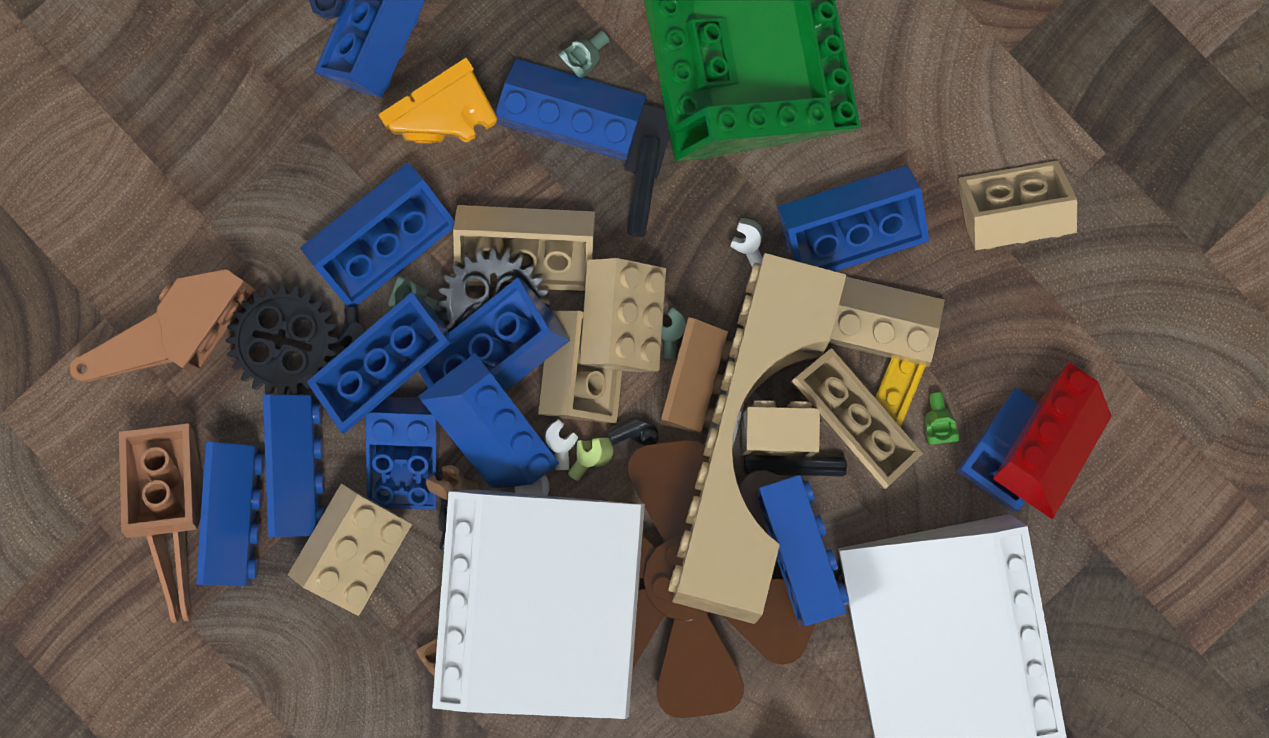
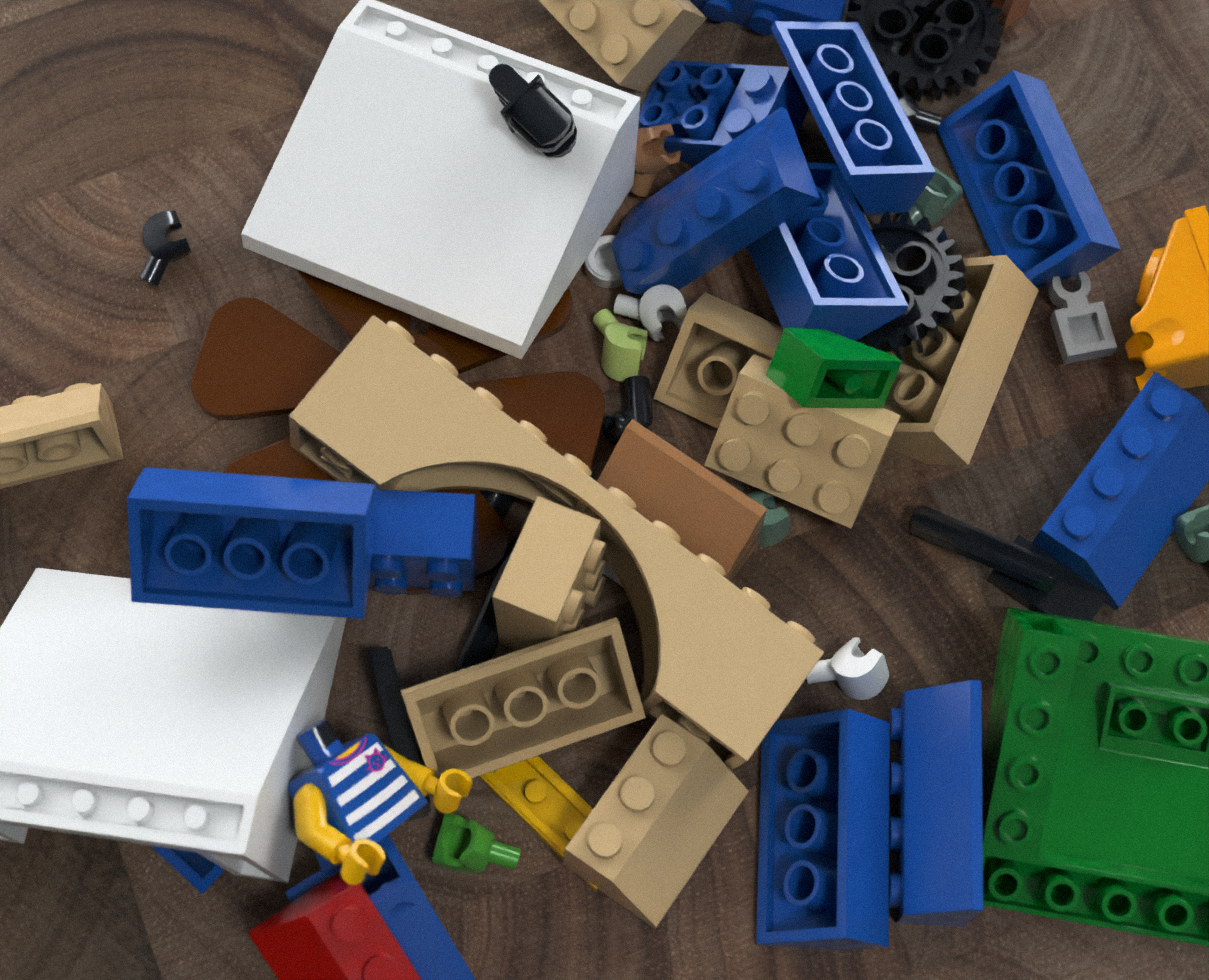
camera: 110 degrees right, 15 degrees down
(469, 171) = (1080, 327): none -> light grey plate
(494, 550) = (534, 112): none -> black arm
(584, 309) = (831, 370): none -> green slope
(816, 163) = (937, 805): none -> blue slope
(846, 603) = (251, 542): none -> blue slope
(892, 491) = (395, 711): none -> black tile
(953, 488) = (361, 795): none -> torso

